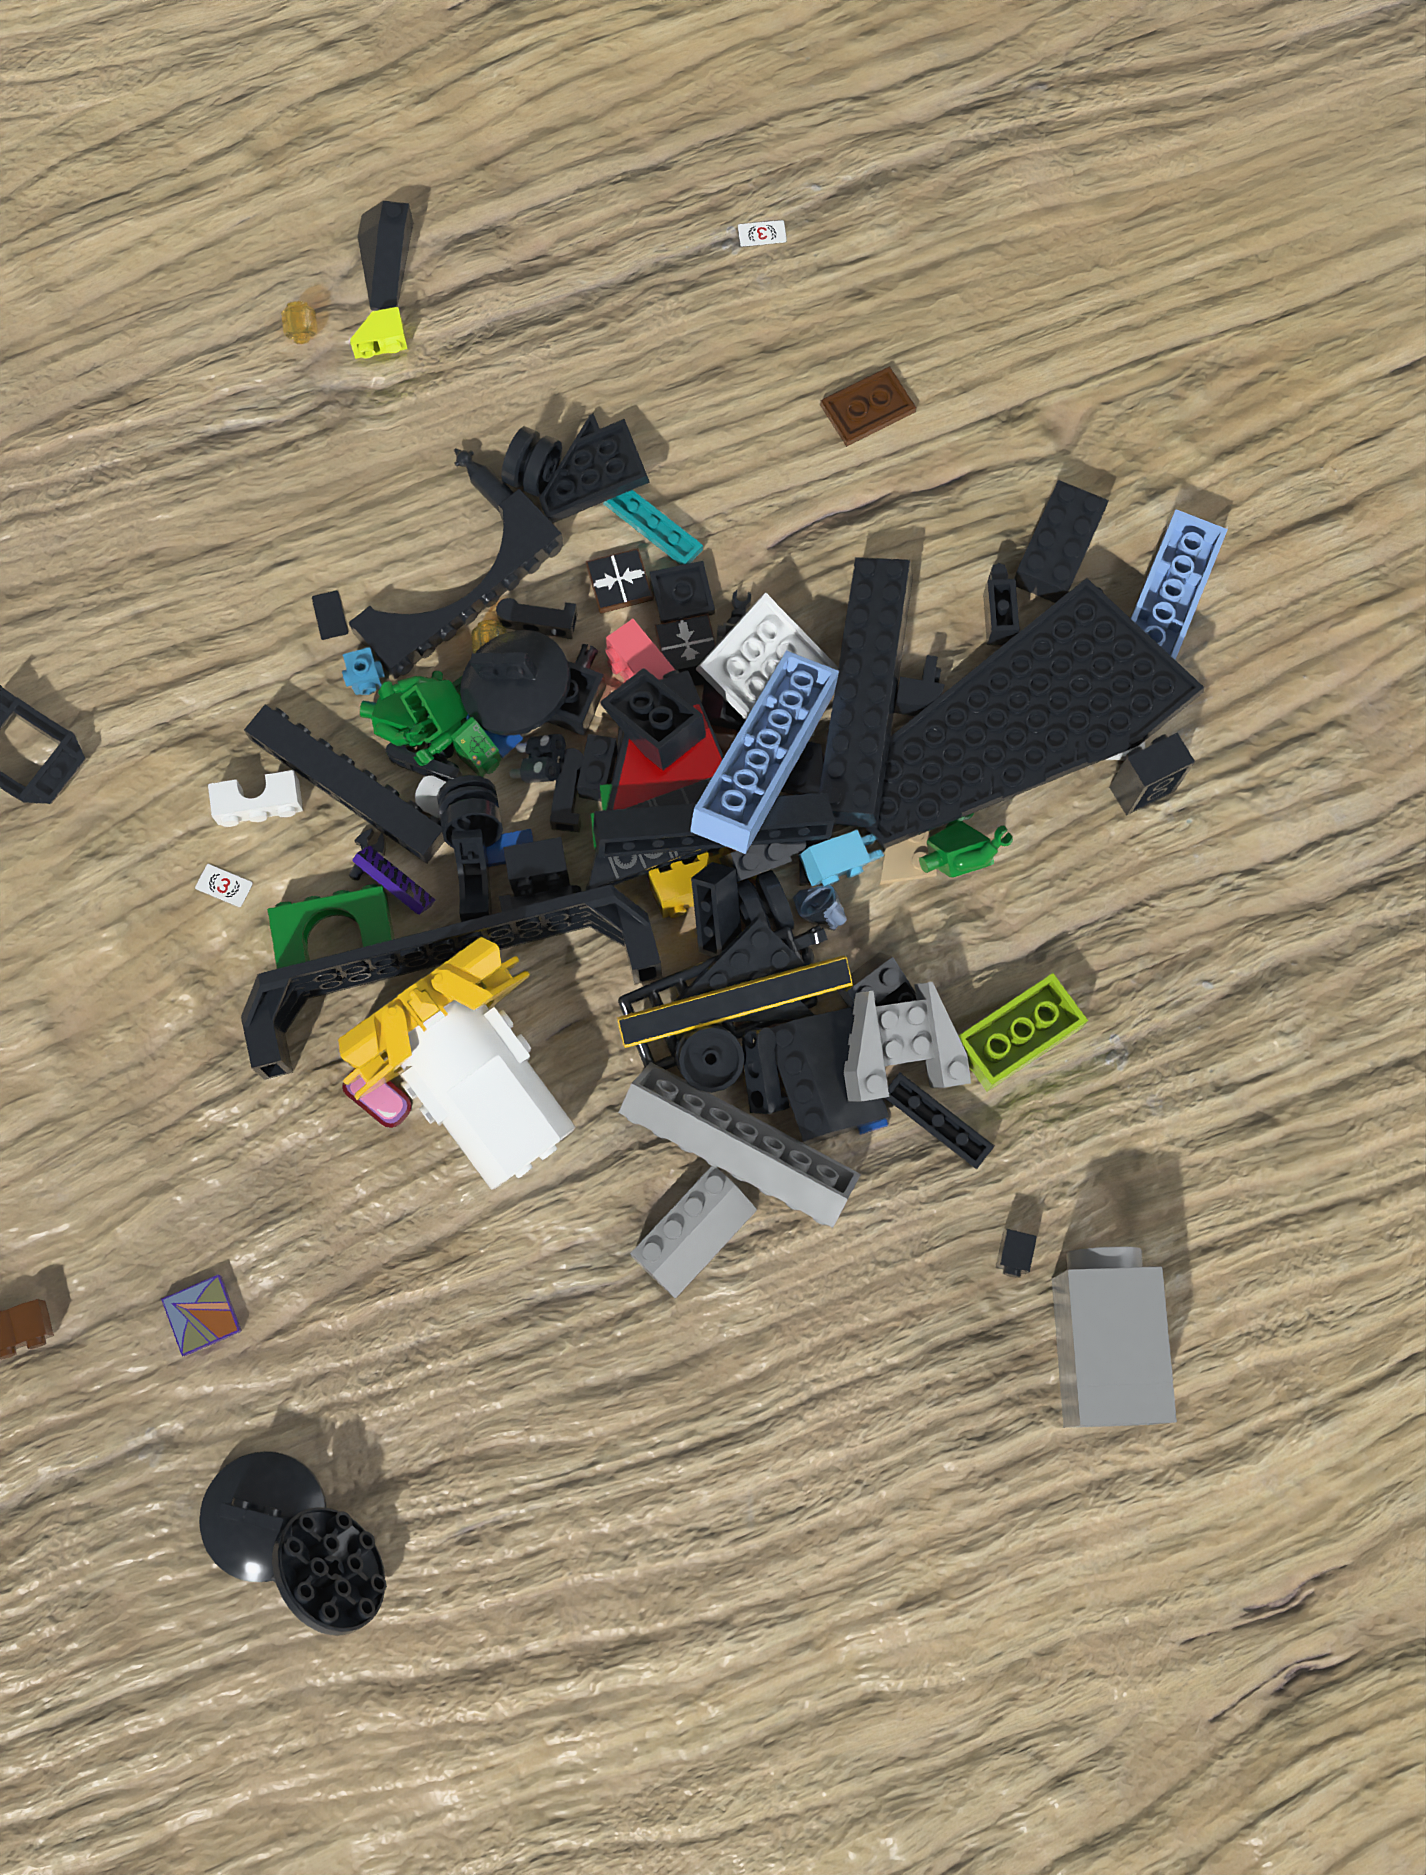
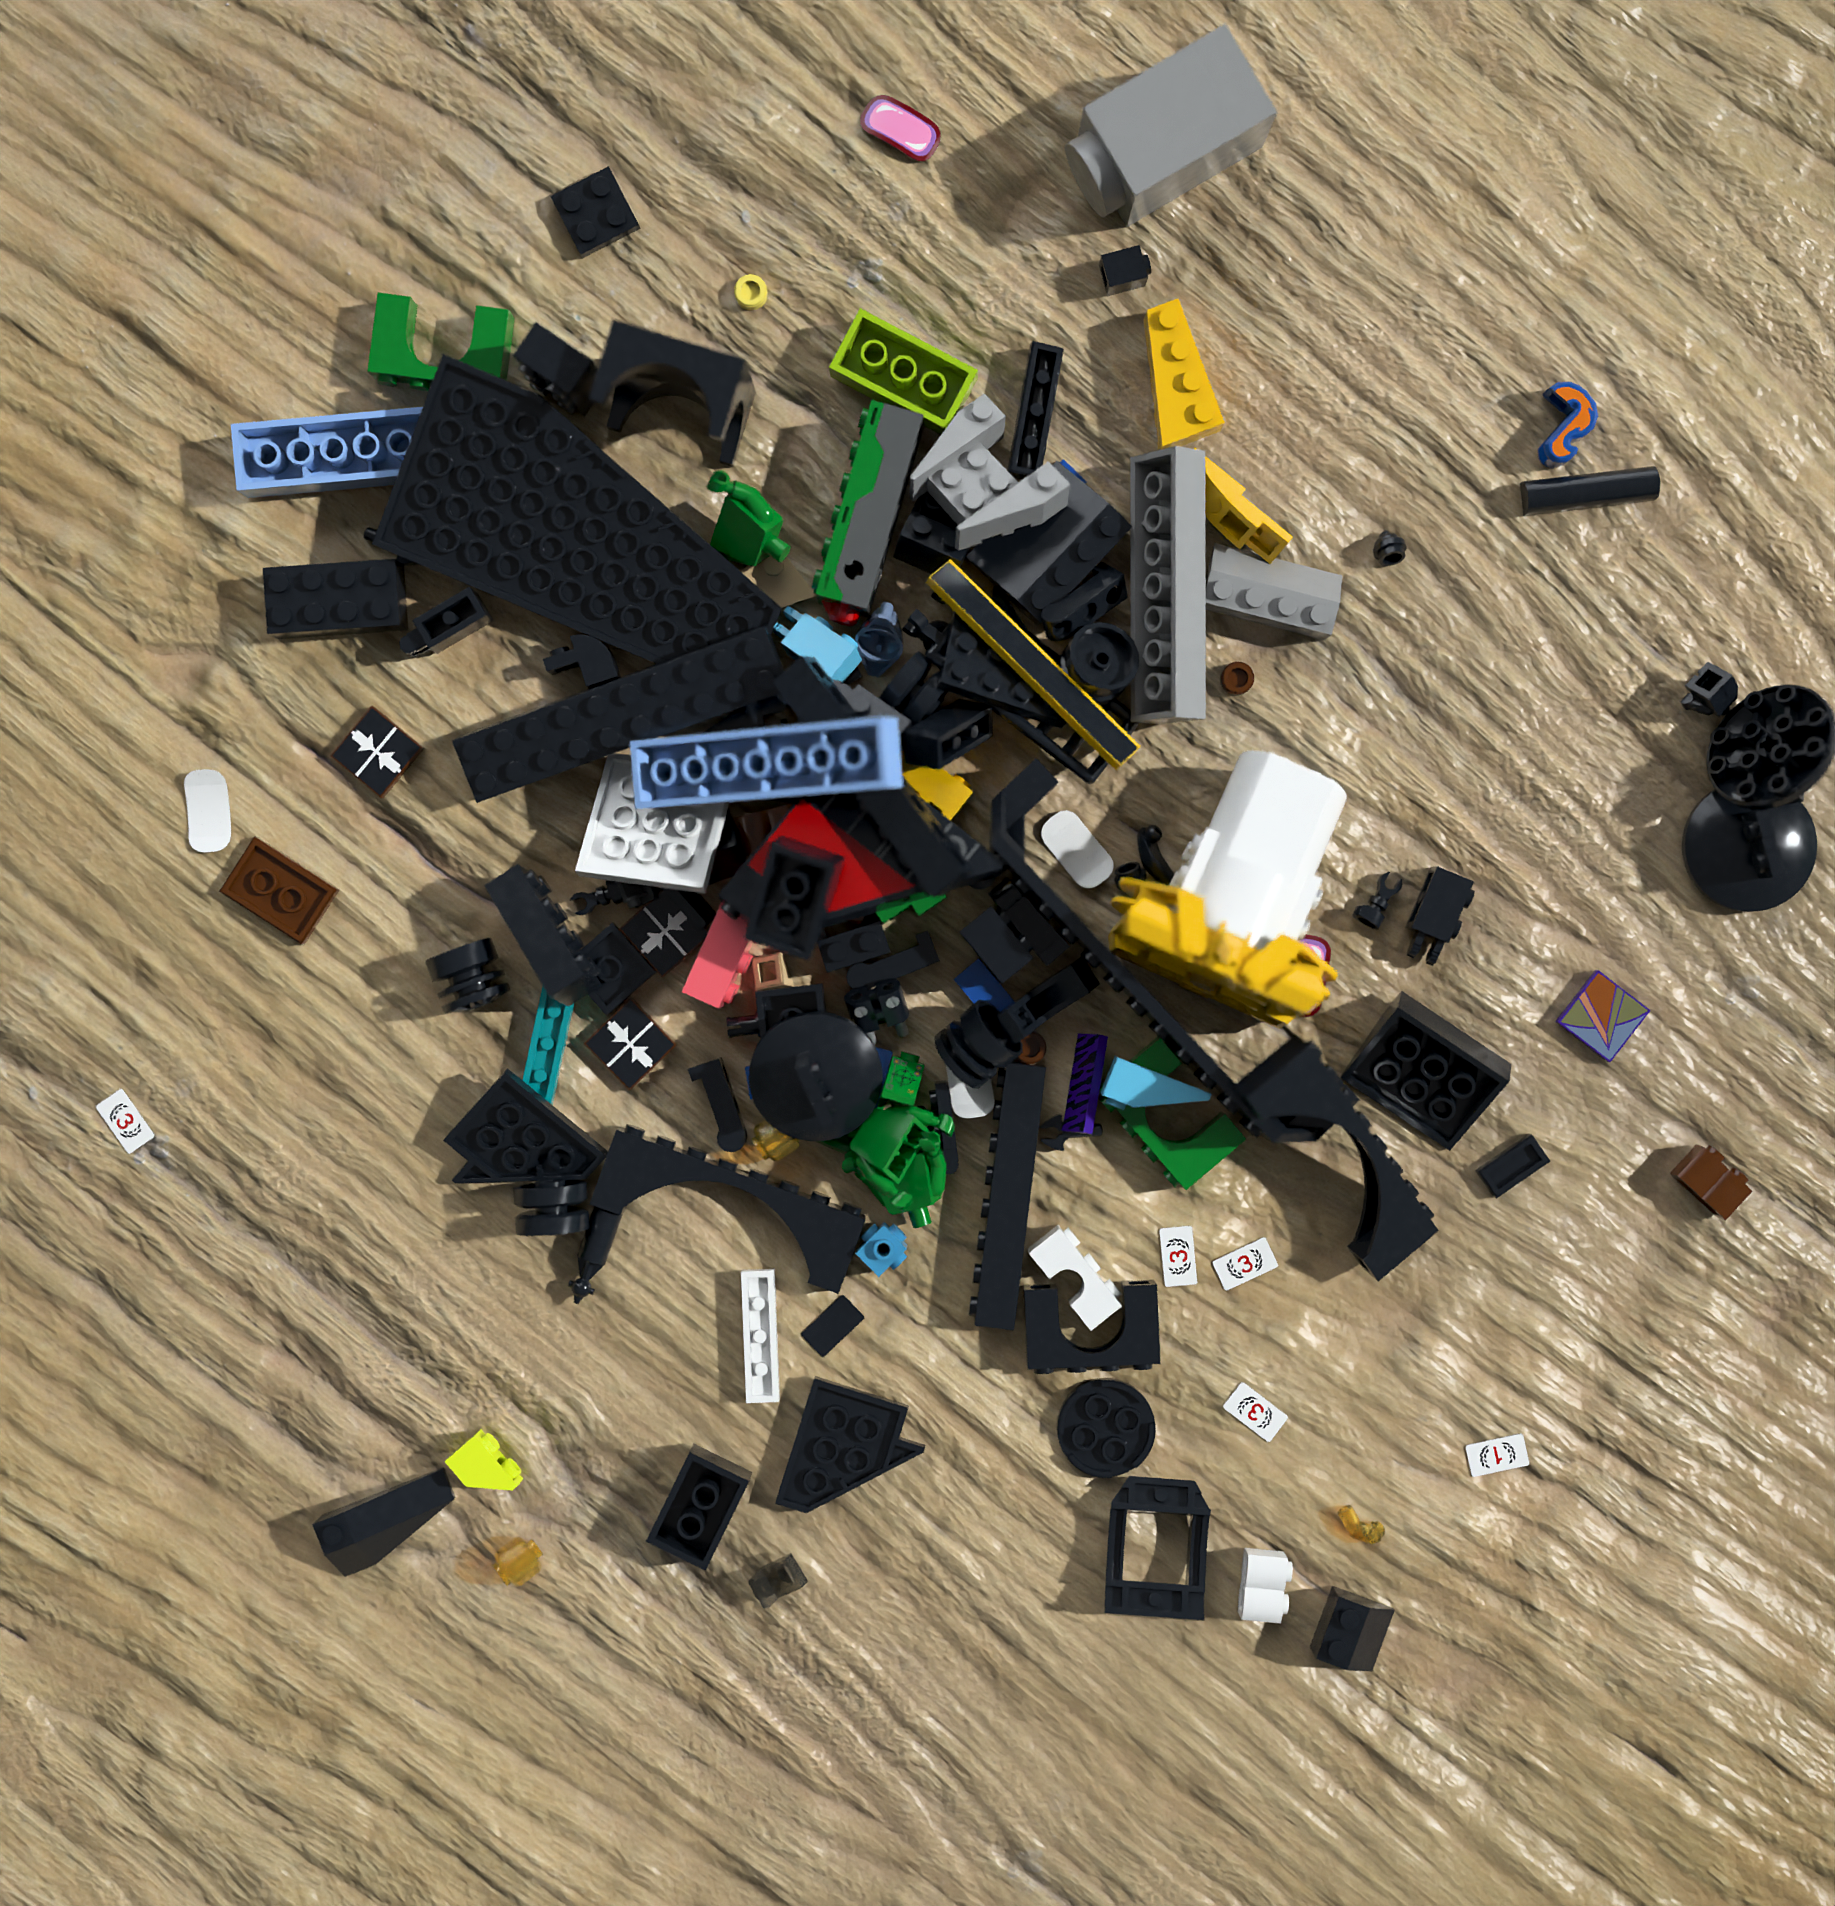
camera: 115 degrees left, 15 degrees up
(72, 880) = (1255, 1412): none -> white sticker
(130, 1177) = (1512, 1165): none -> black tile
(132, 765) = (1106, 1427): none -> black tile
(174, 480) = (777, 1580): none -> clear smoke bracket
(186, 931) = (1245, 1264): none -> white sticker
(213, 754) = (1134, 1344): none -> black arch
(240, 575) = (842, 1444): none -> black wing
(244, 1148) = (1427, 1071): none -> black slope
(258, 454) = (699, 1507): none -> black brick
(289, 1013) = (1300, 1084): none -> black arch
(353, 559) = (760, 1335): none -> white plate
(363, 914) = (1142, 1087): none -> medium azure slope
(363, 1225) = (1438, 911): none -> black hinge
(392, 1171) = (1371, 915): none -> black piece
(407, 1553) = (1710, 691): none -> black piece
(444, 859) = (1033, 1048): none -> reddish brown tile
(530, 1000) = (1130, 870): none -> black plate
(538, 1024) = (1151, 856): none -> black arm
(576, 974) = (1077, 849): none -> white sticker
(632, 1546) = (1590, 490): none -> black brick
(639, 1168) = (1237, 678): none -> reddish brown tile
(675, 1347) = (1389, 549): none -> black plate
(691, 1559) = (1580, 420): none -> blue animal
(731, 490) = (468, 976): none -> black wheel
(731, 551) = (543, 934): none -> black brick
(772, 1229) = (1238, 517): none -> yellow slope
(901, 1246) = (1179, 384): none -> yellow wedge
(923, 945) = (868, 511): none -> dark grey piece
(932, 518) = (377, 752): none -> black tile
(951, 388) = (207, 810): none -> white sticker
(1085, 867) = (655, 365): none -> black piece
(1144, 956) = (750, 292): none -> light yellow tile
(1220, 1140) = (901, 127): none -> sticker
(1225, 674) = (393, 353): none -> green arch
(1265, 873) = (595, 212): none -> black plate

